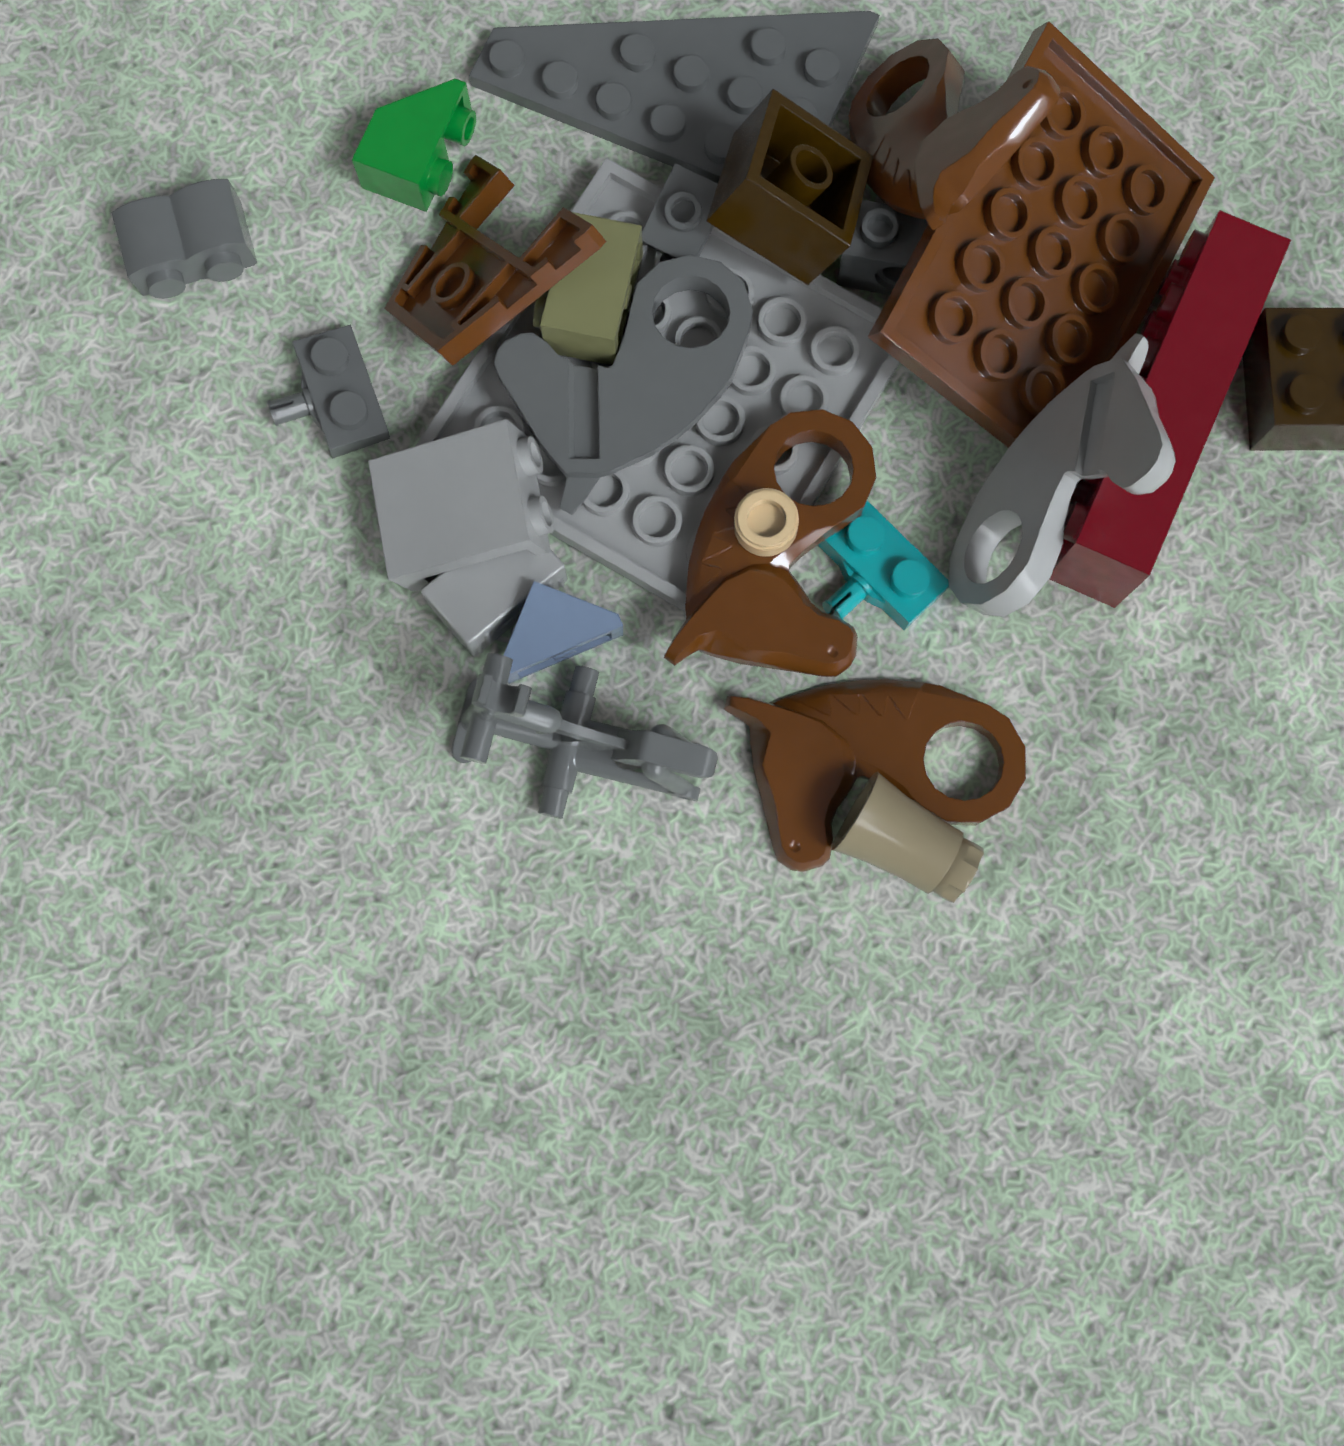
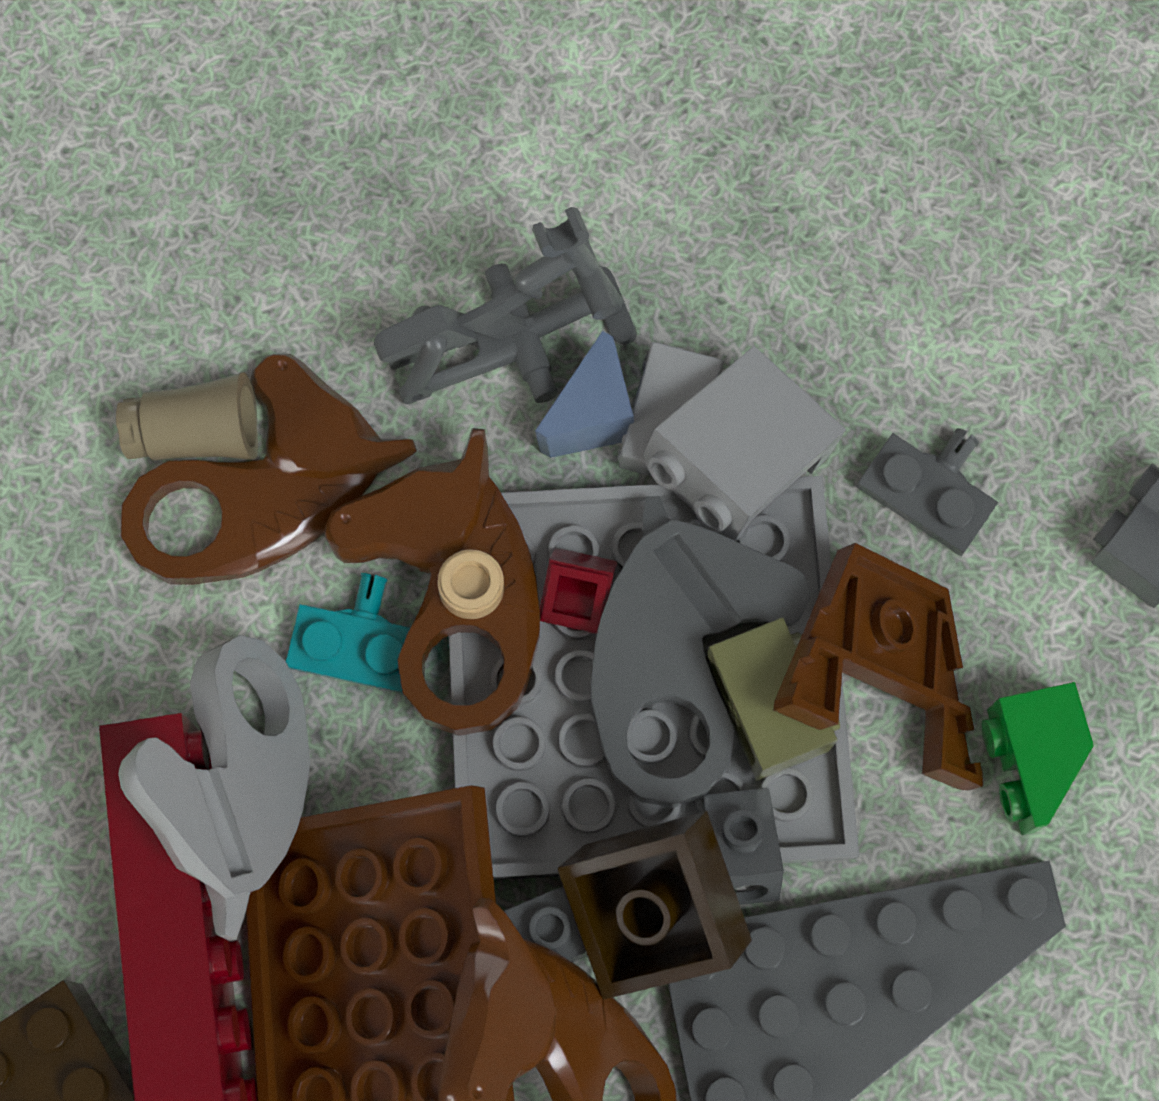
camera: 145 degrees right, 5 degrees down
(676, 480) = (576, 590): none -> dark red slope

